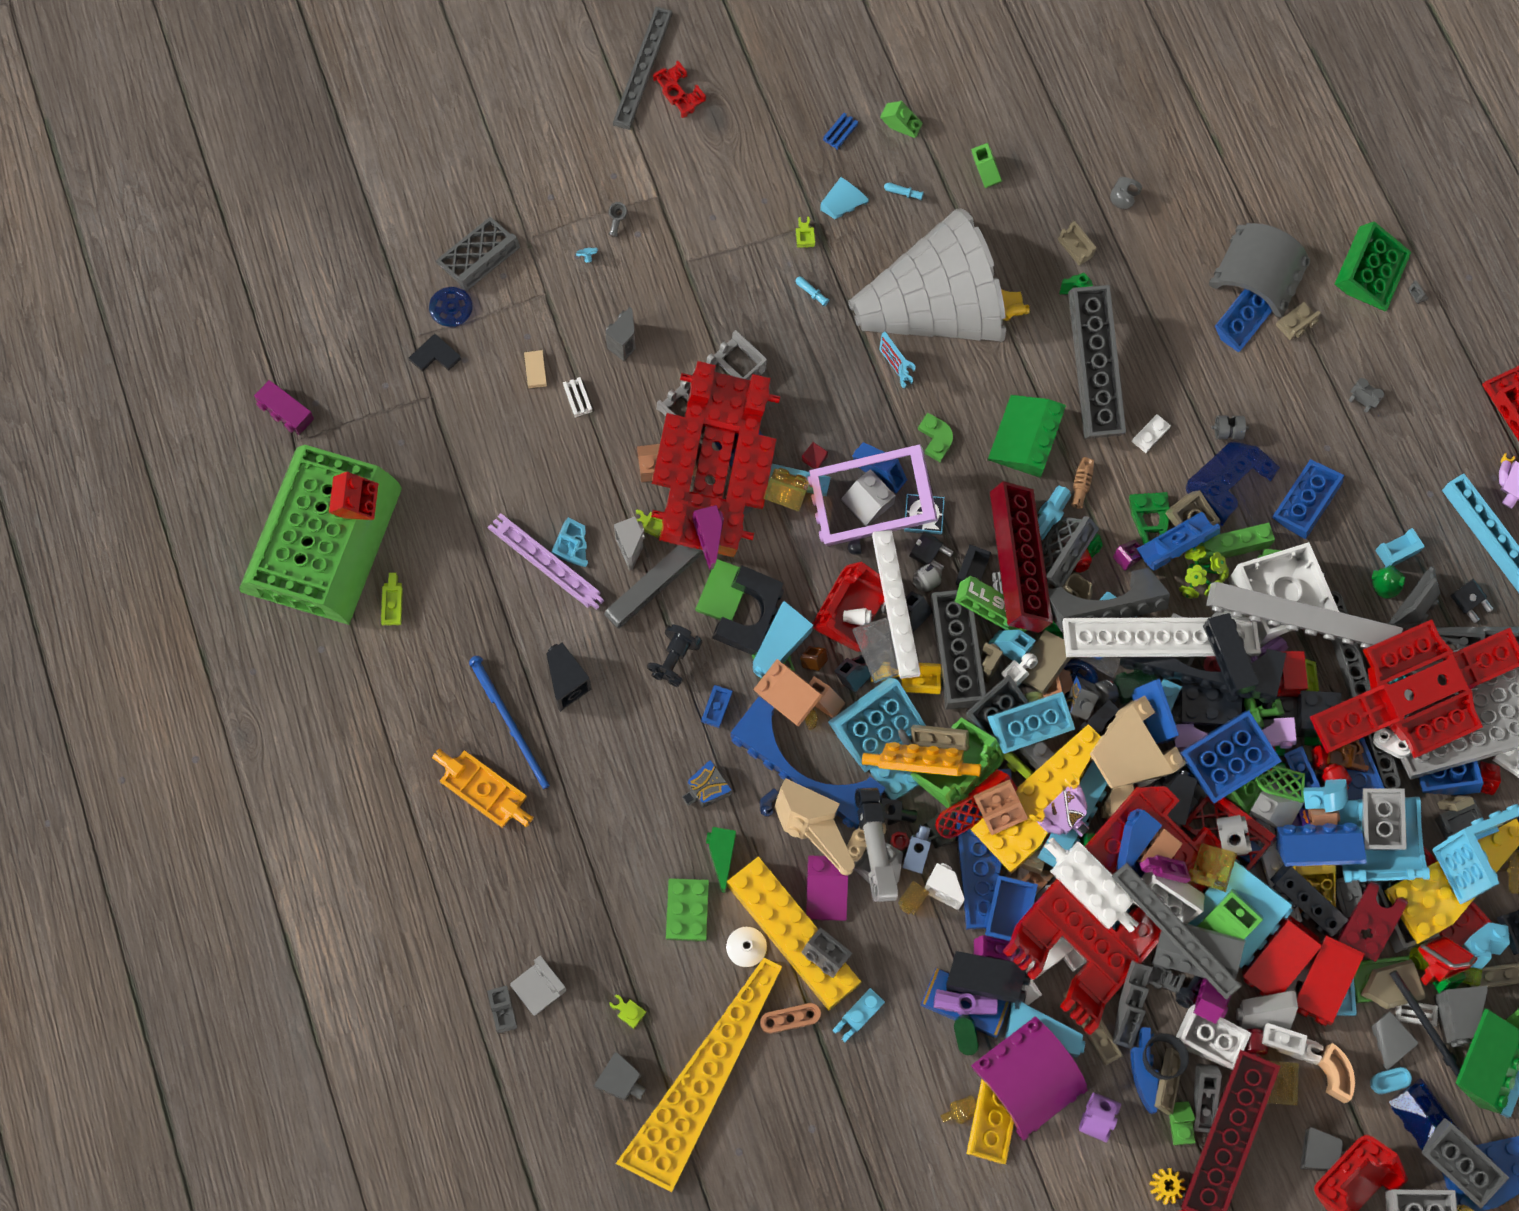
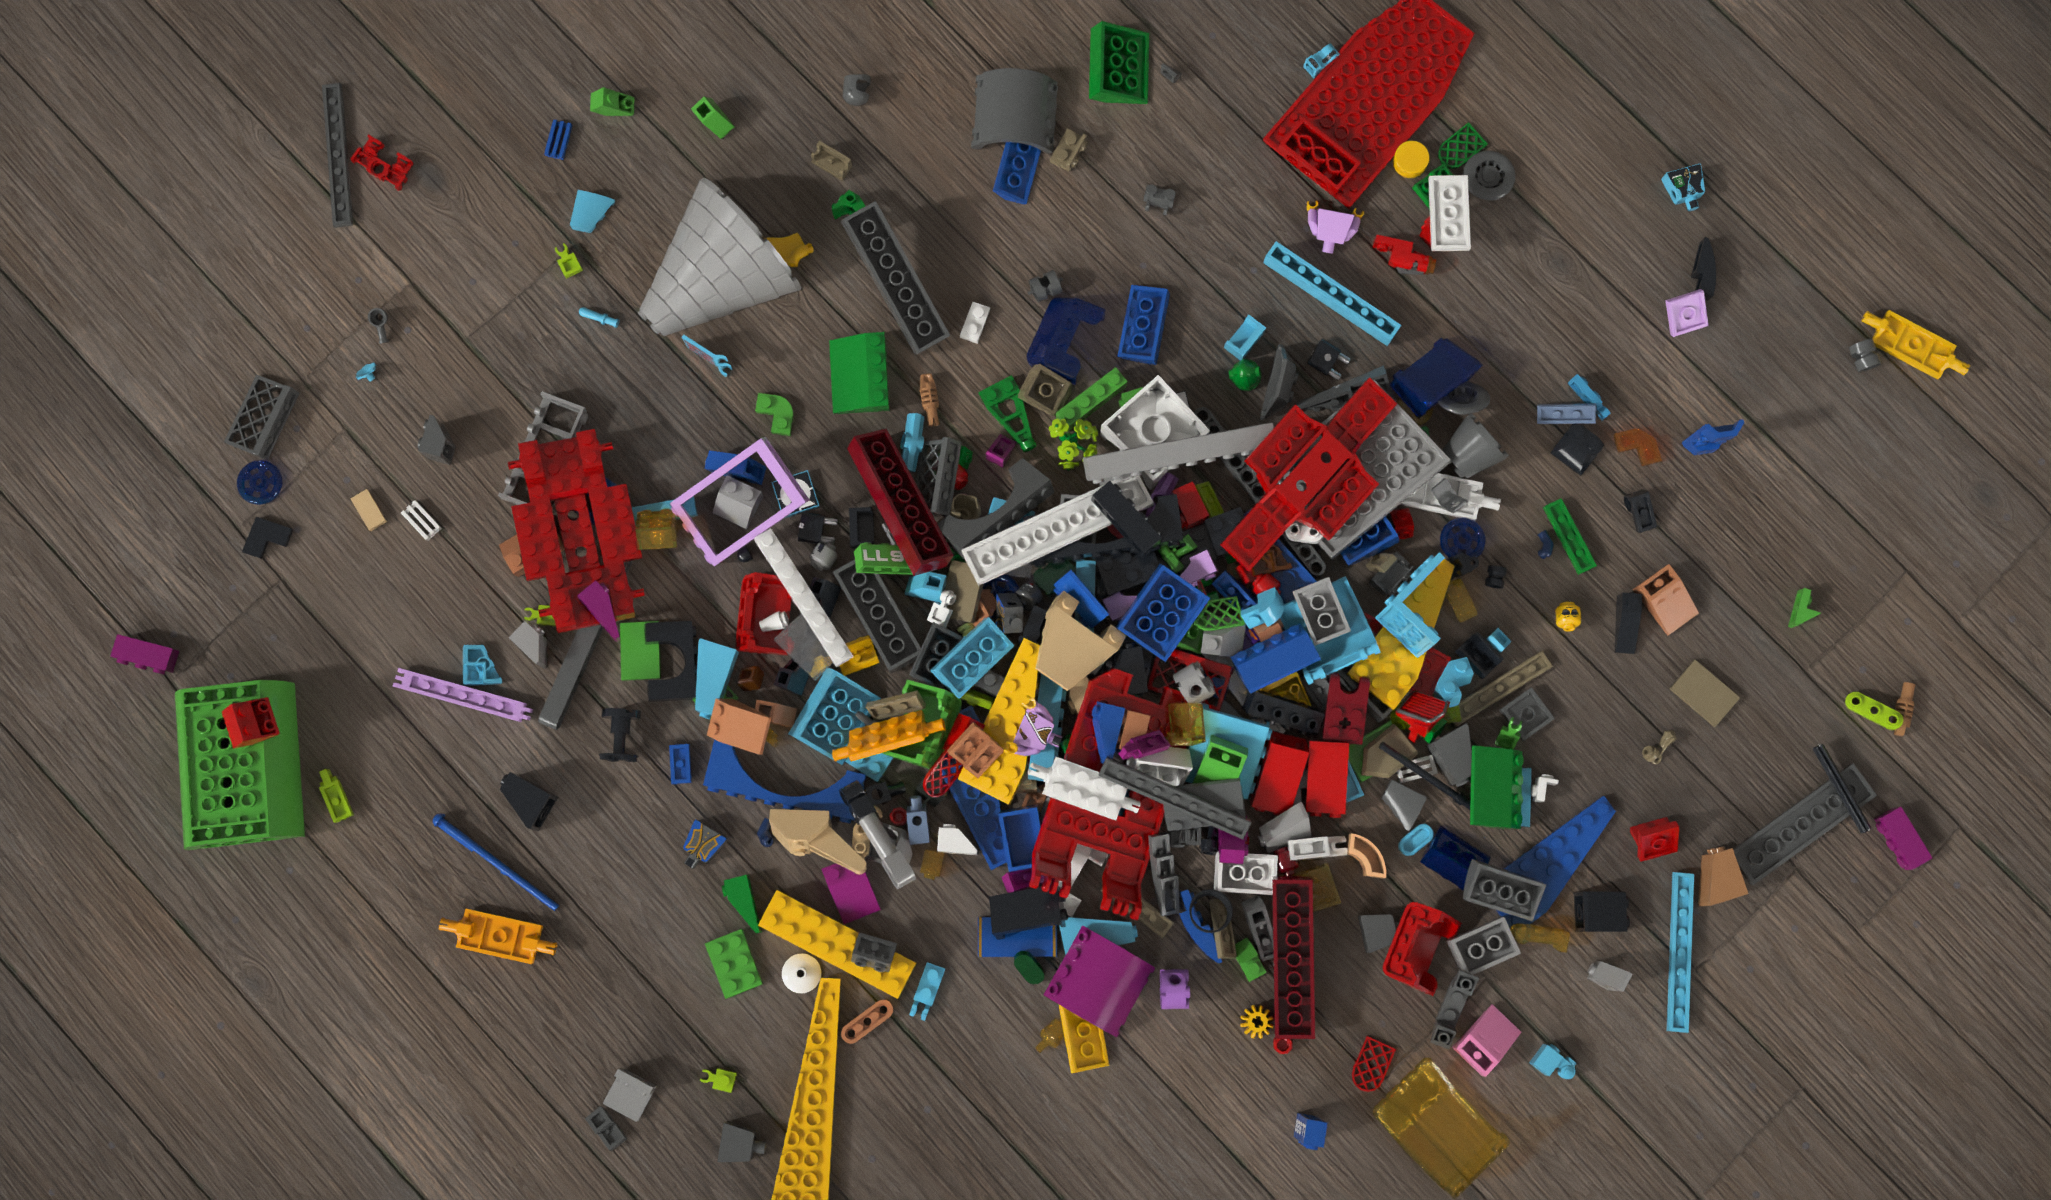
camera: 20 degrees left, 10 degrees up
(814, 456) = (670, 482): dark red slope -> none
(890, 187) = (637, 177): medium azure piece -> none
(952, 1002) = (1003, 945): medium lavender piece -> none
(992, 657) = (914, 612): dark tan bracket -> none
(1177, 541) = (1038, 422): blue piece -> none

